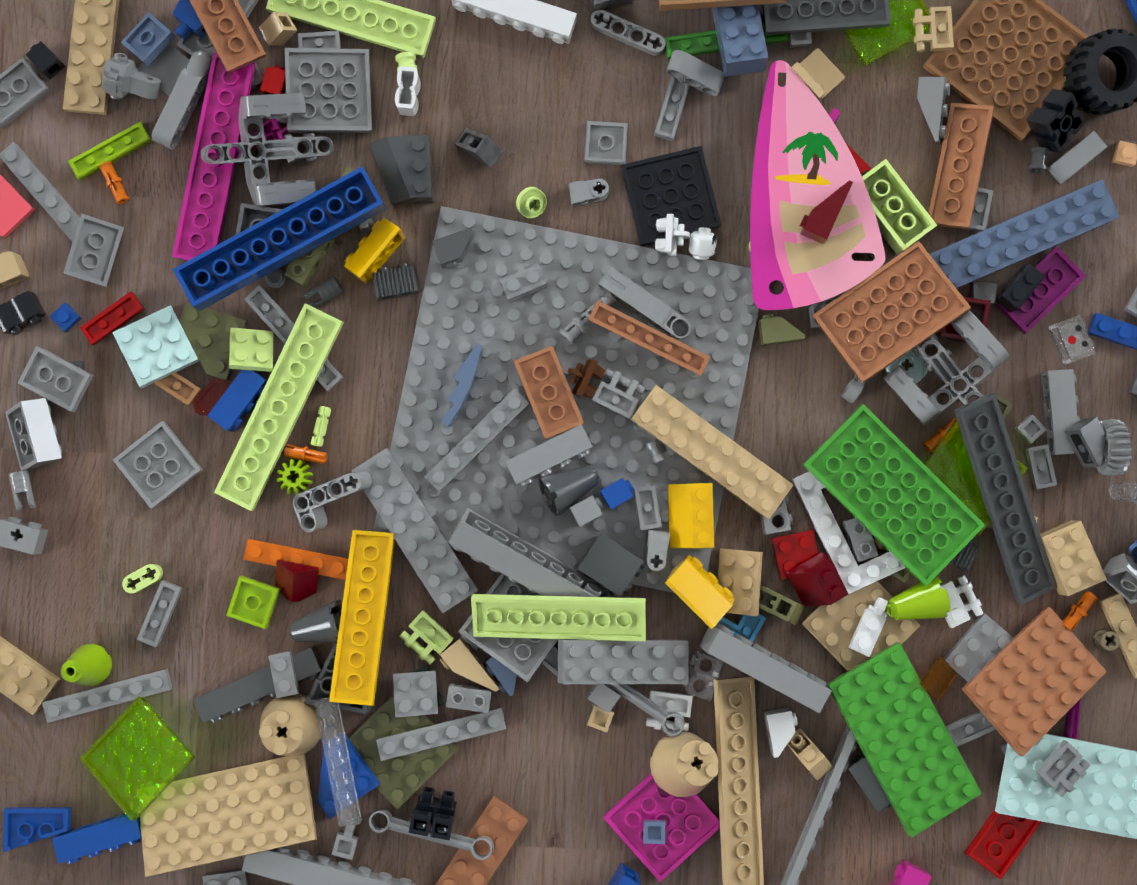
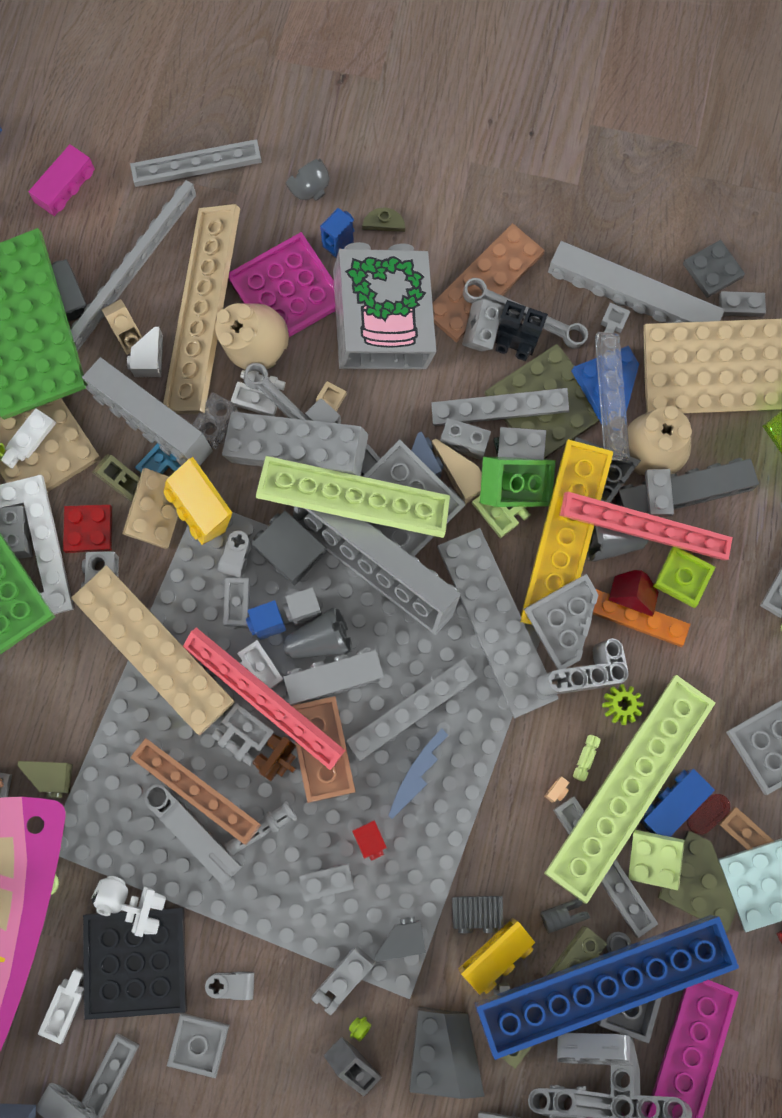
camera: 170 degrees left, 10 degrees down
(292, 638) = (645, 526): none -> coral plate
(305, 454) = (608, 728): orange axle -> none
(342, 394) = (557, 790): none -> light nougat plate
(354, 540) = (564, 620): none -> light grey plate
(414, 661) = (517, 482): none -> bright green slope
(469, 813) = (482, 325): none -> light grey brick
(478, 177) = (359, 1028): none -> lime plate
(494, 323) = (370, 840): none -> red brick
(496, 211) = (343, 979): none -> light grey plate
(531, 202) = (301, 983): yellowish green plate -> none
(565, 814) = (383, 308): none -> light grey brick
(606, 425) = (263, 698): none -> coral plate
(615, 453) = (259, 664): none -> white plate
(654, 831) = (296, 277): sand blue plate -> none
(691, 515) = (190, 585): yellow slope -> none
(720, 152) = (63, 1008): none -> white hinge
(817, 581) = (70, 493): dark red slope -> none

